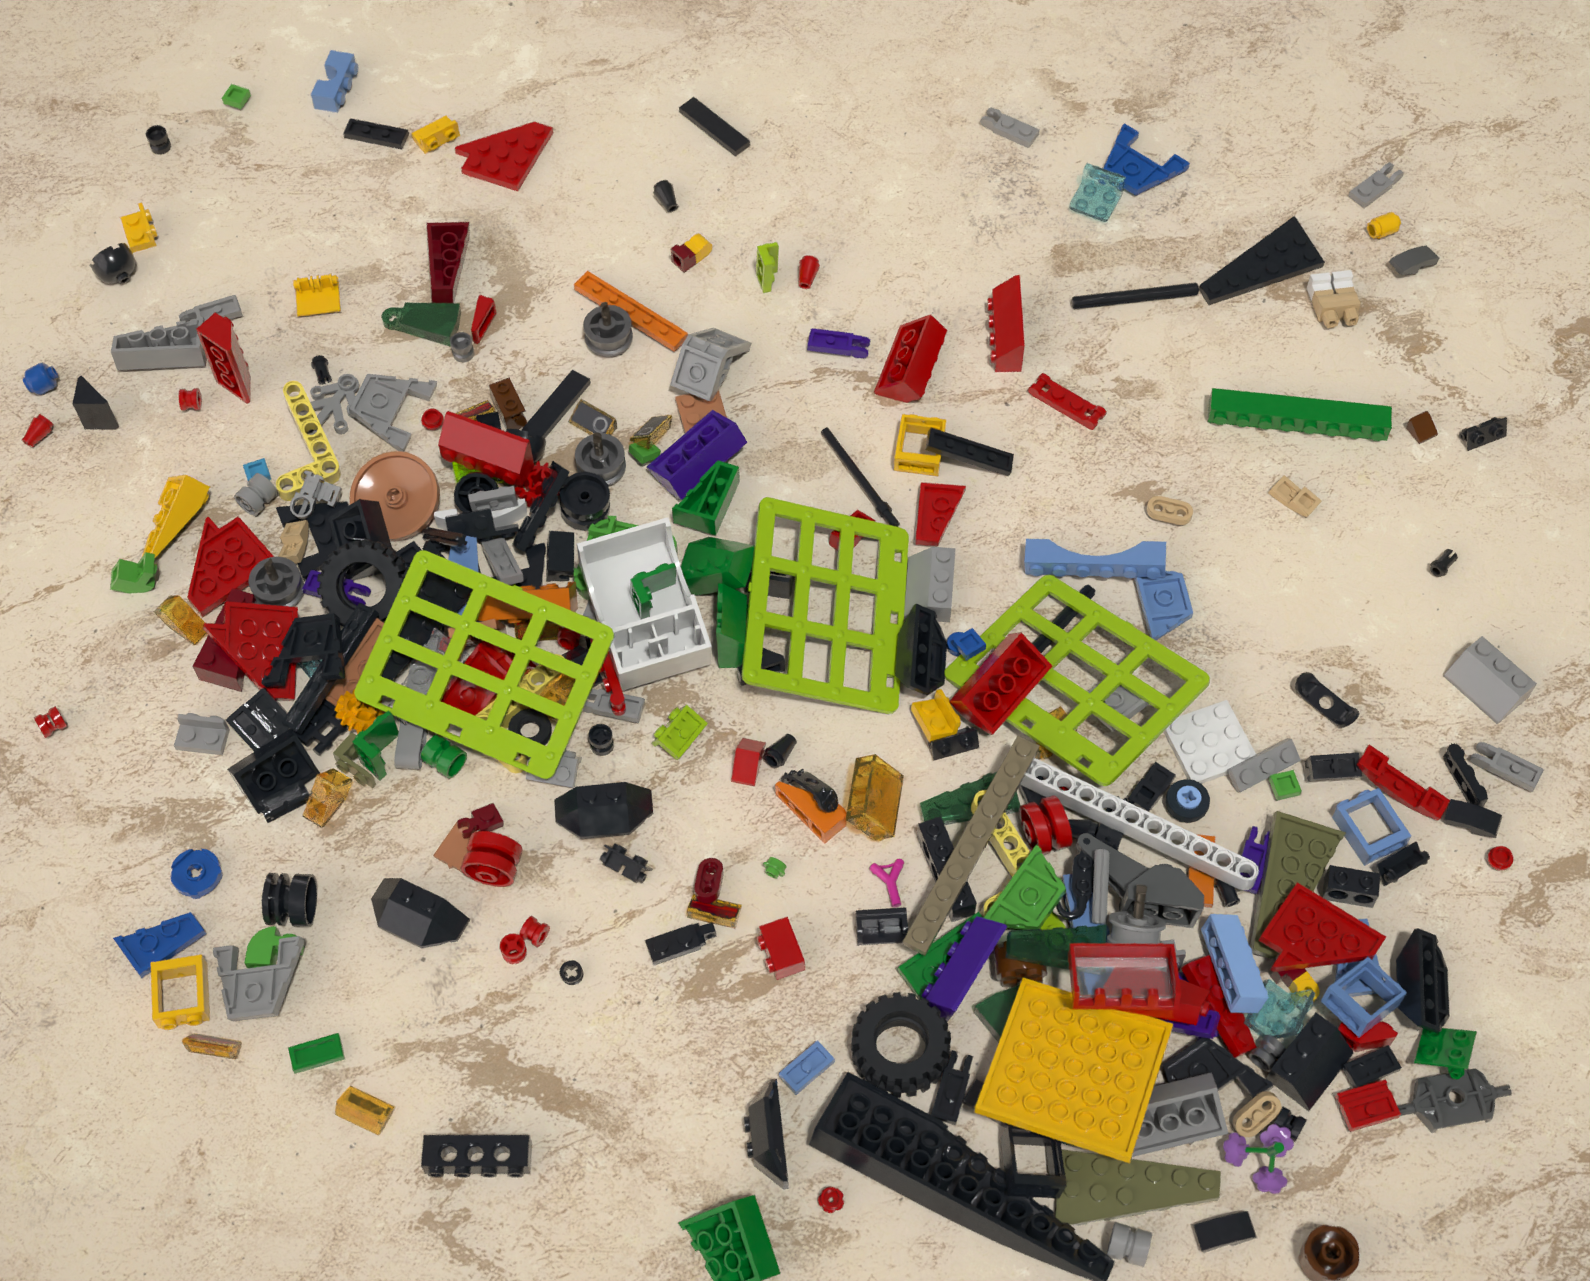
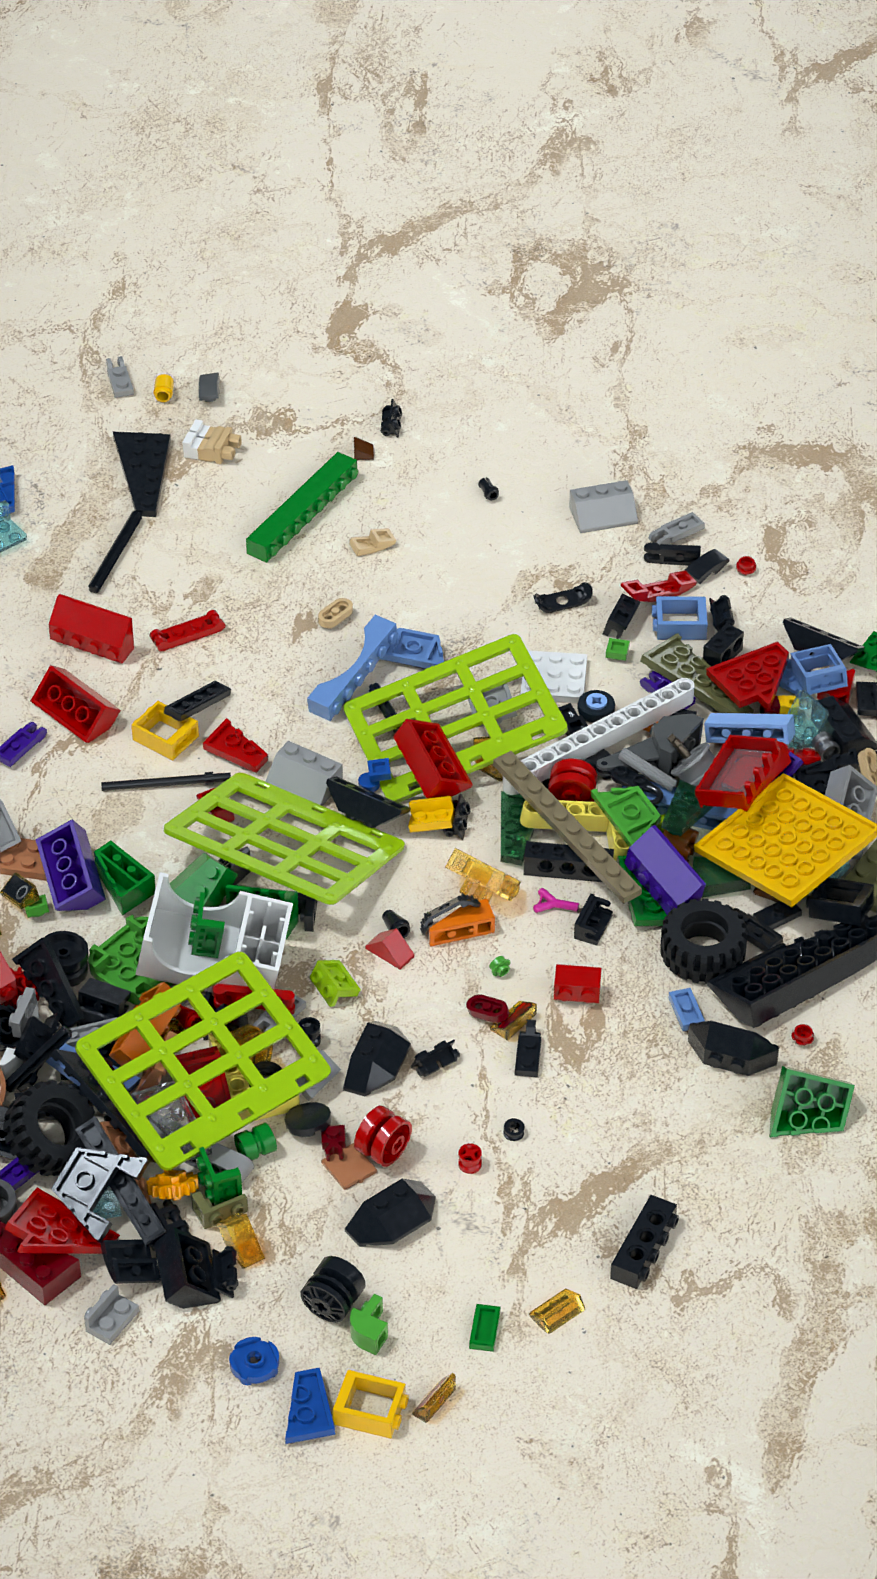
camera: 65 degrees left, 15 degrees down
(45, 725) = (18, 1426): red wheel -> none
(256, 990) = (403, 1346): light grey wing -> none
(495, 787) = (308, 1118): none -> black tile
(534, 931) = (463, 1136): red wheel -> none
(601, 455) = (22, 930): flat silver wheel -> none
(1263, 765) = (594, 653): light grey plate -> none

